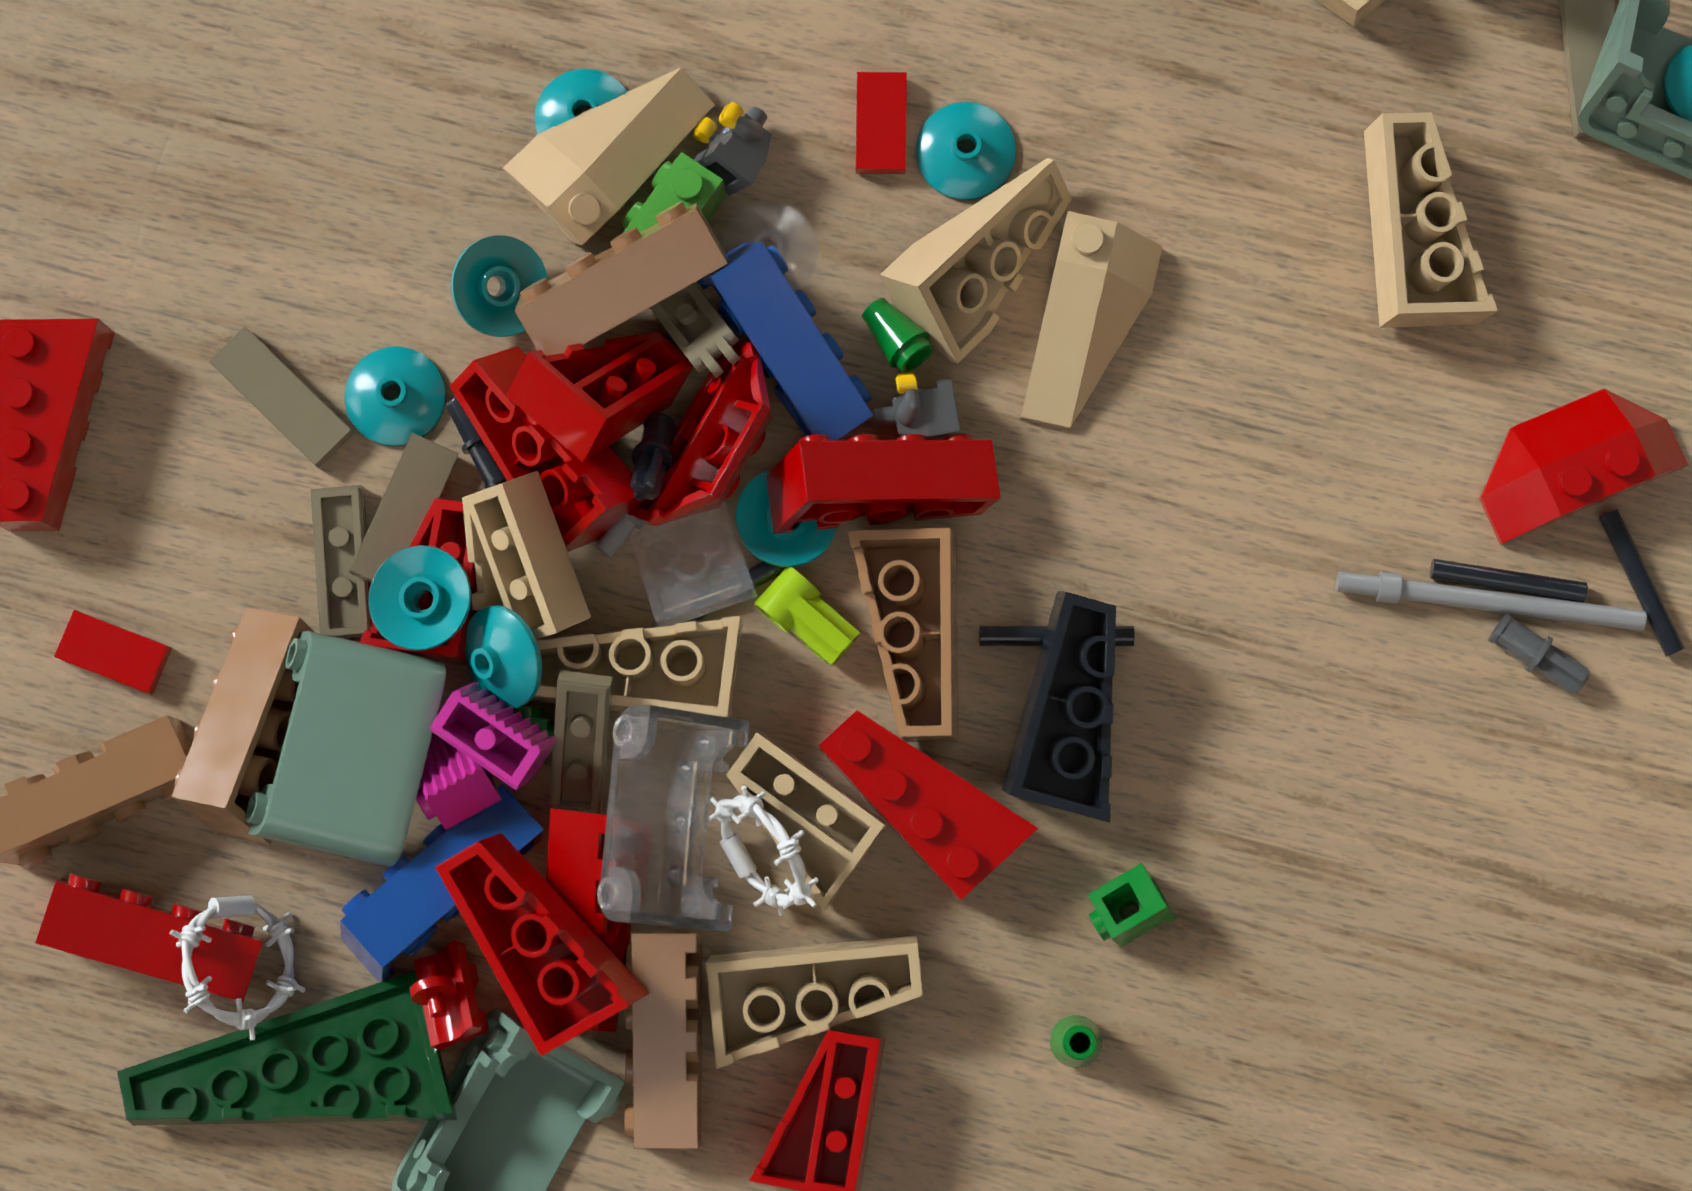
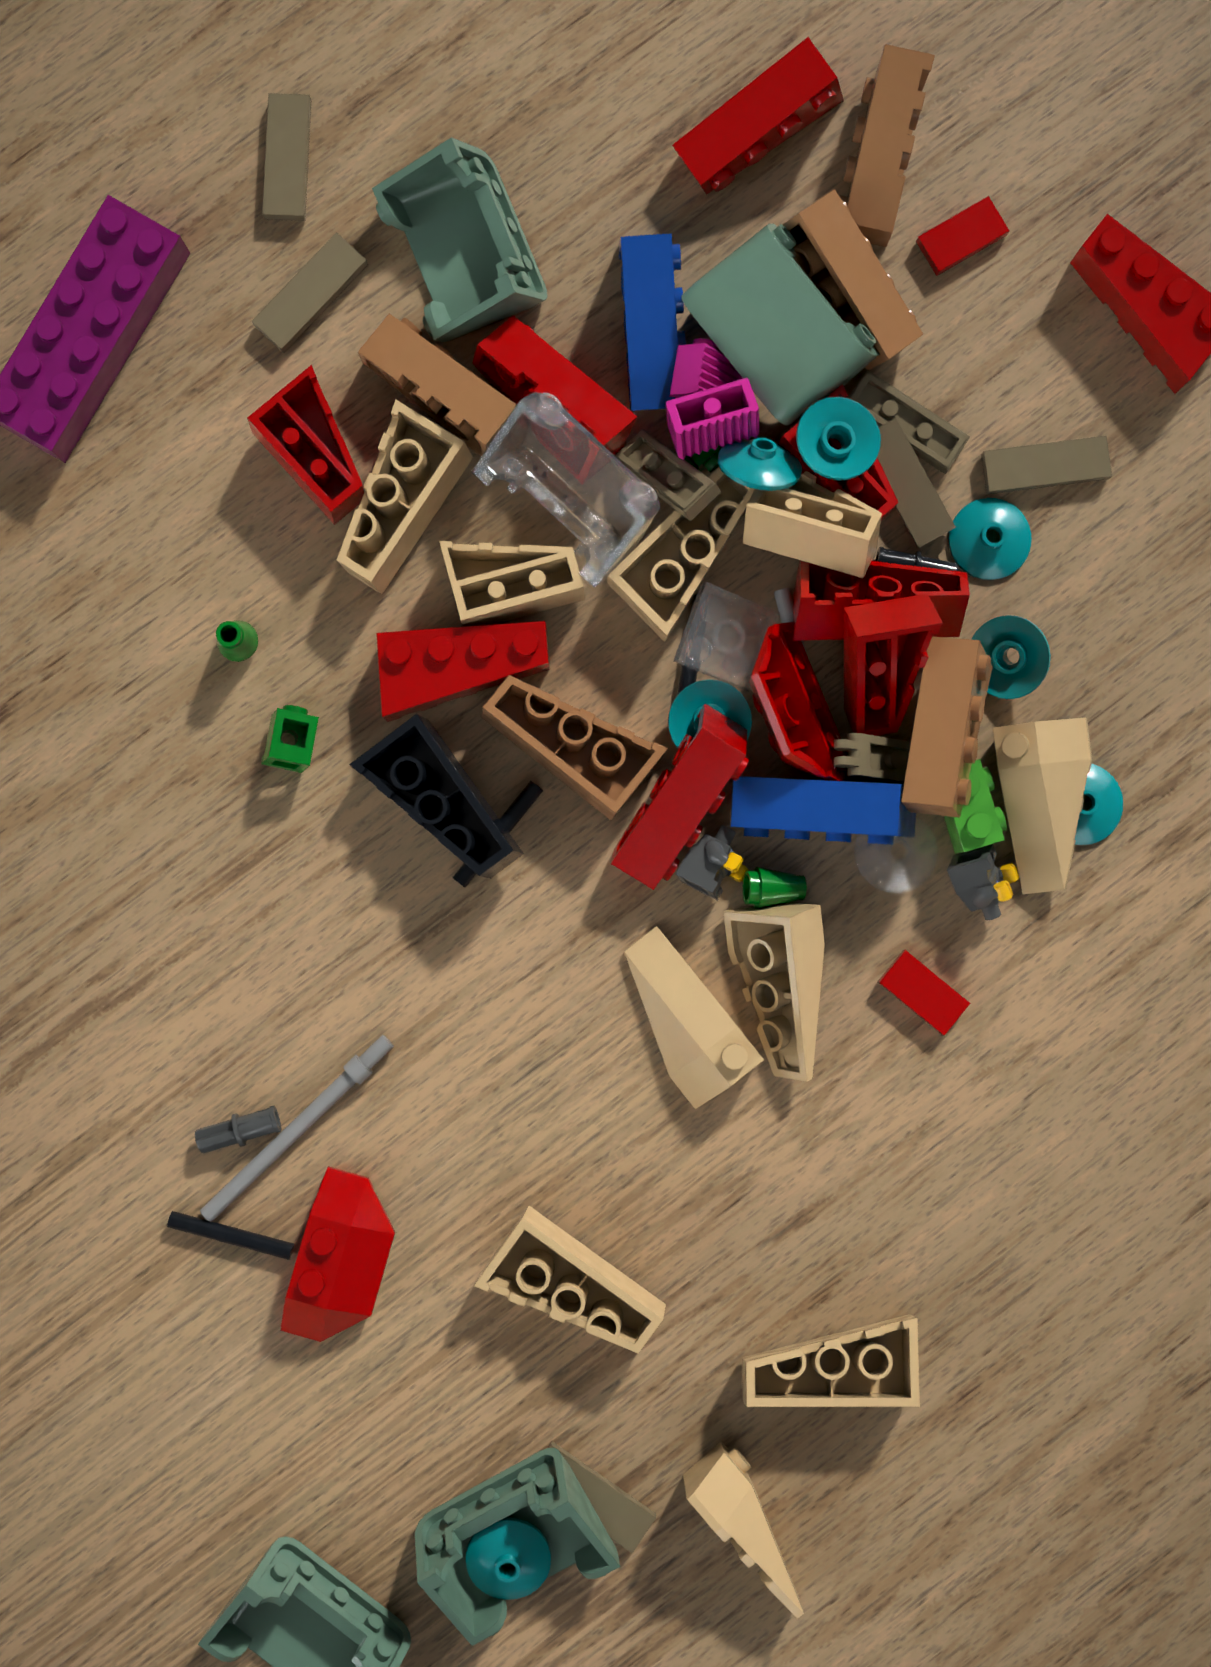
camera: 120 degrees right, 5 degrees up
(197, 992) = (737, 139): white piece -> none
(328, 1062) = (593, 172): dark green wing -> none
(448, 996) = (575, 273): red hips -> none
(536, 944) = (557, 340): red wedge -> none
(652, 456) = (814, 660): black axle -> none
(743, 863) = (542, 536): white piece -> none
(798, 607) = (645, 683): lime piece -> none
(965, 174) = (840, 1027): teal dish -> none
(1508, 580) = (301, 1151): black bar -> none

